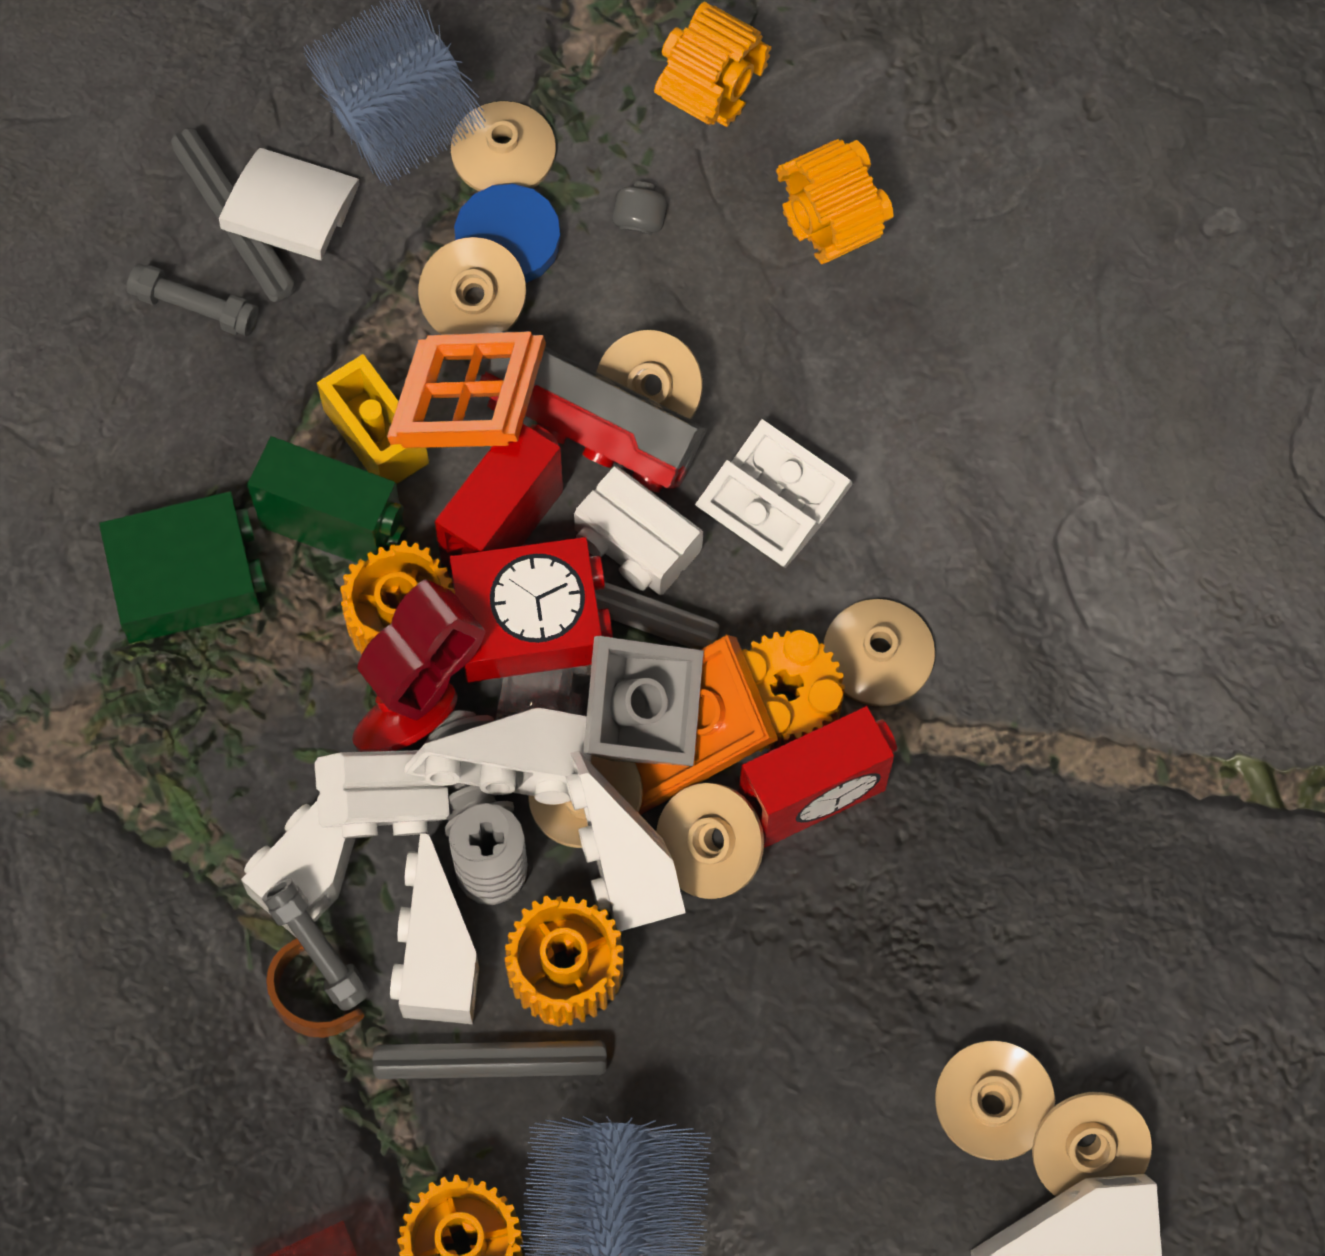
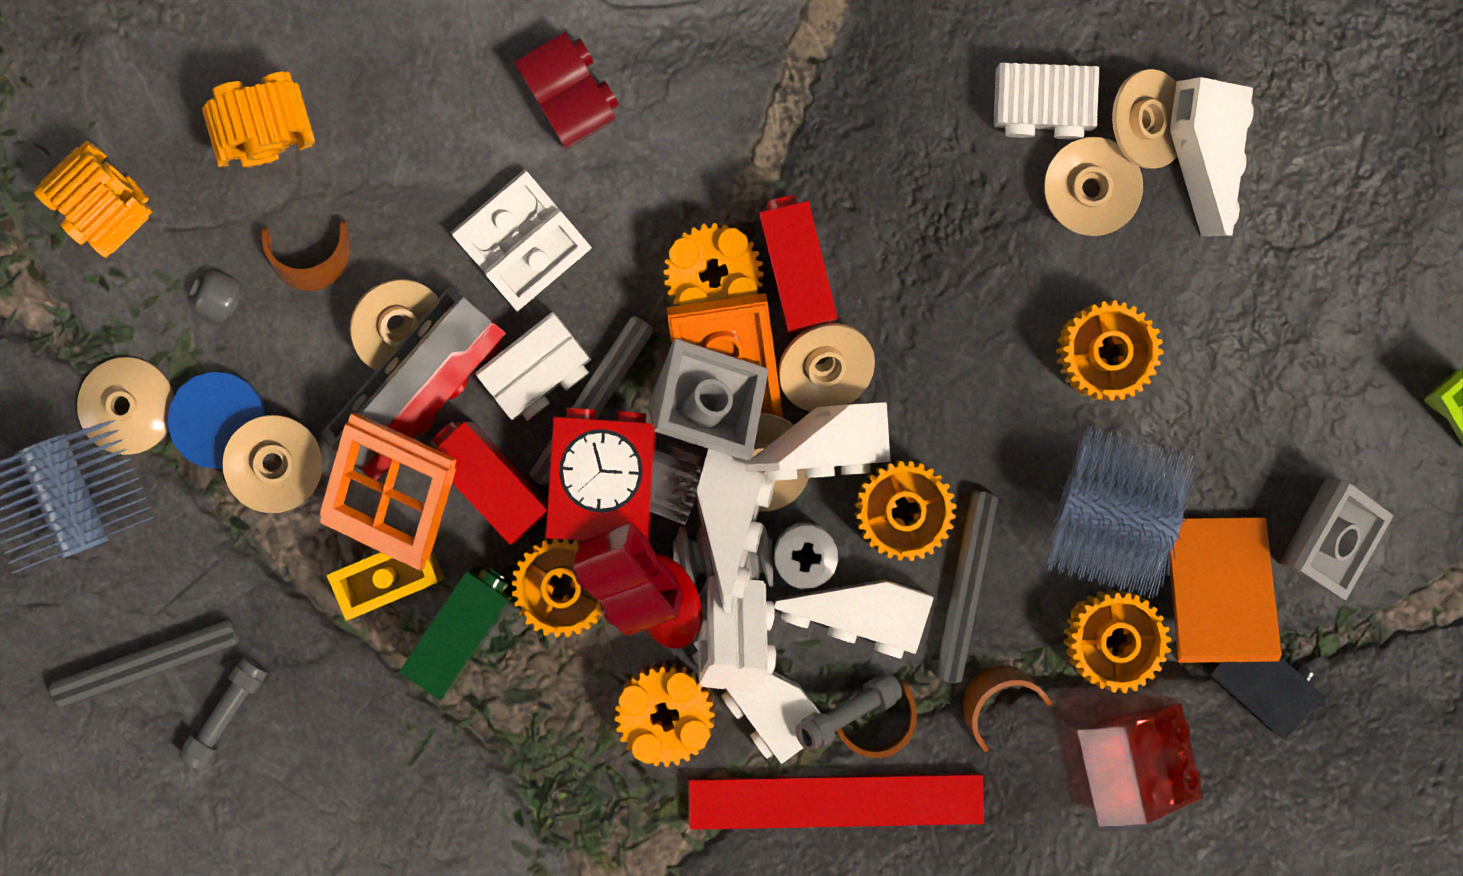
camera: 75 degrees left, 20 degrees up
(182, 567) = (481, 765): dark green brick -> none
(208, 968) = (836, 801): none -> red tile
(257, 722) = (650, 738): none -> light orange brick
(288, 203) = (146, 610): white slope -> none
(387, 1116) = (986, 684): none -> dark orange helmet
(687, 302) = (315, 277): none -> dark orange helmet
(819, 1126) = (1122, 327): none -> light orange brick
(876, 676) = (676, 209): tan dish -> none
(949, 503) = (567, 90): none -> dark red brick
(1082, 1023) = (1046, 98): none -> white brick

